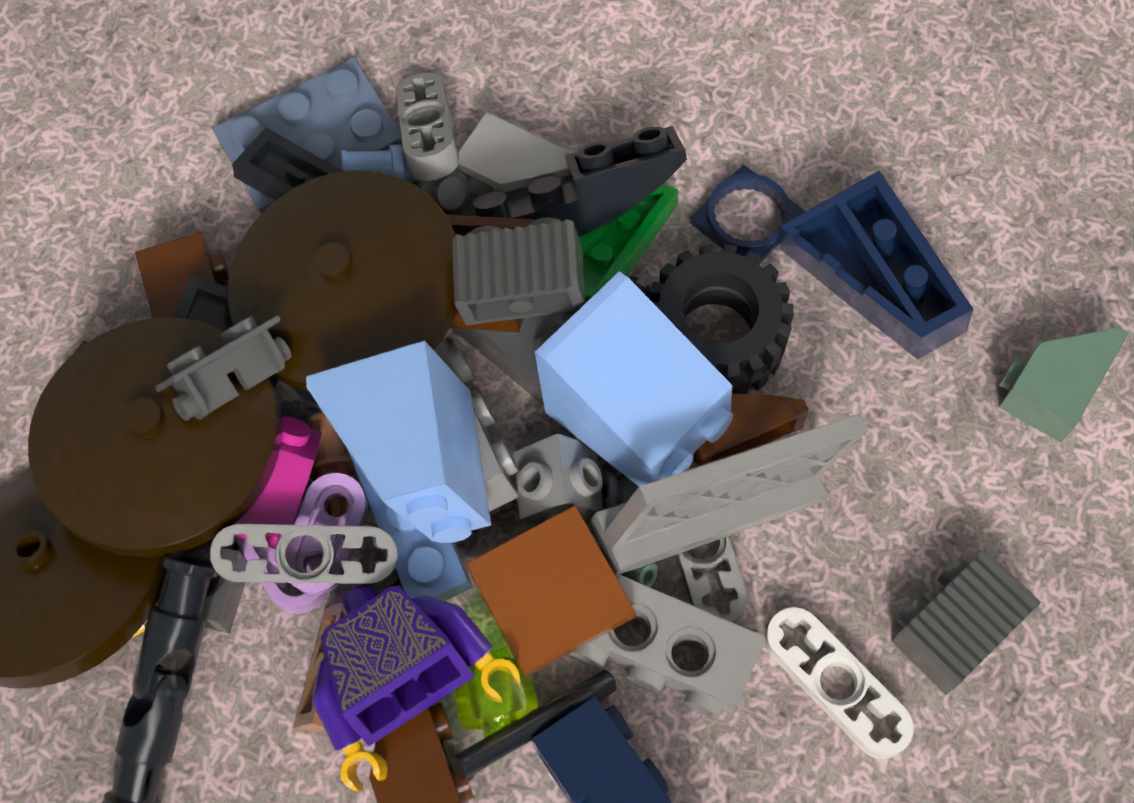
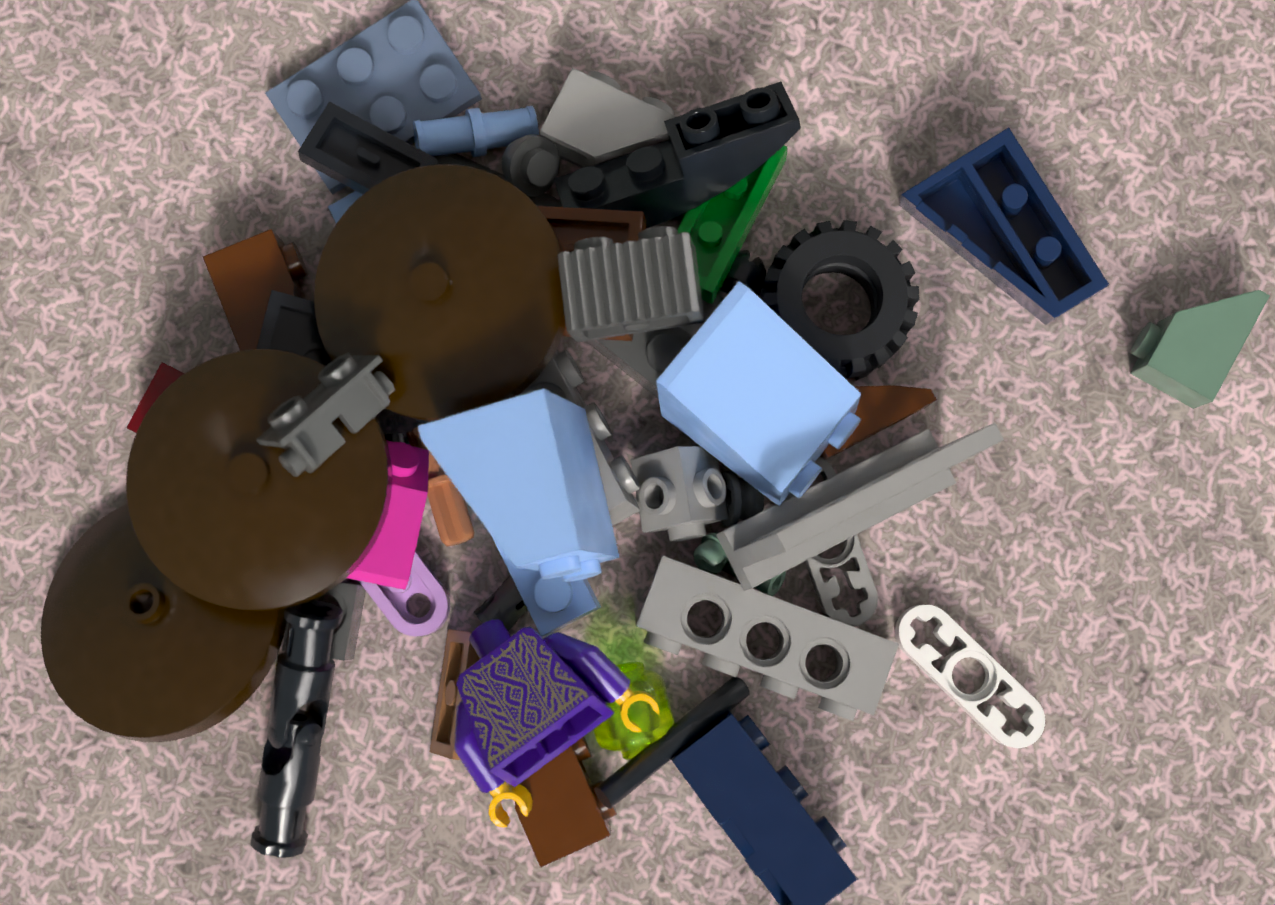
camera: 10 degrees left, 15 degrees up
(314, 512) = (444, 562): lavender plate -> none
(351, 570) = (381, 613): light grey beam -> none
(426, 127) = (521, 99): light grey beam -> none
(550, 591) = (681, 612): dark orange tile -> none
(744, 178) = (864, 213): dark blue piece -> none
(964, 620) = (1095, 608): dark grey brick -> none

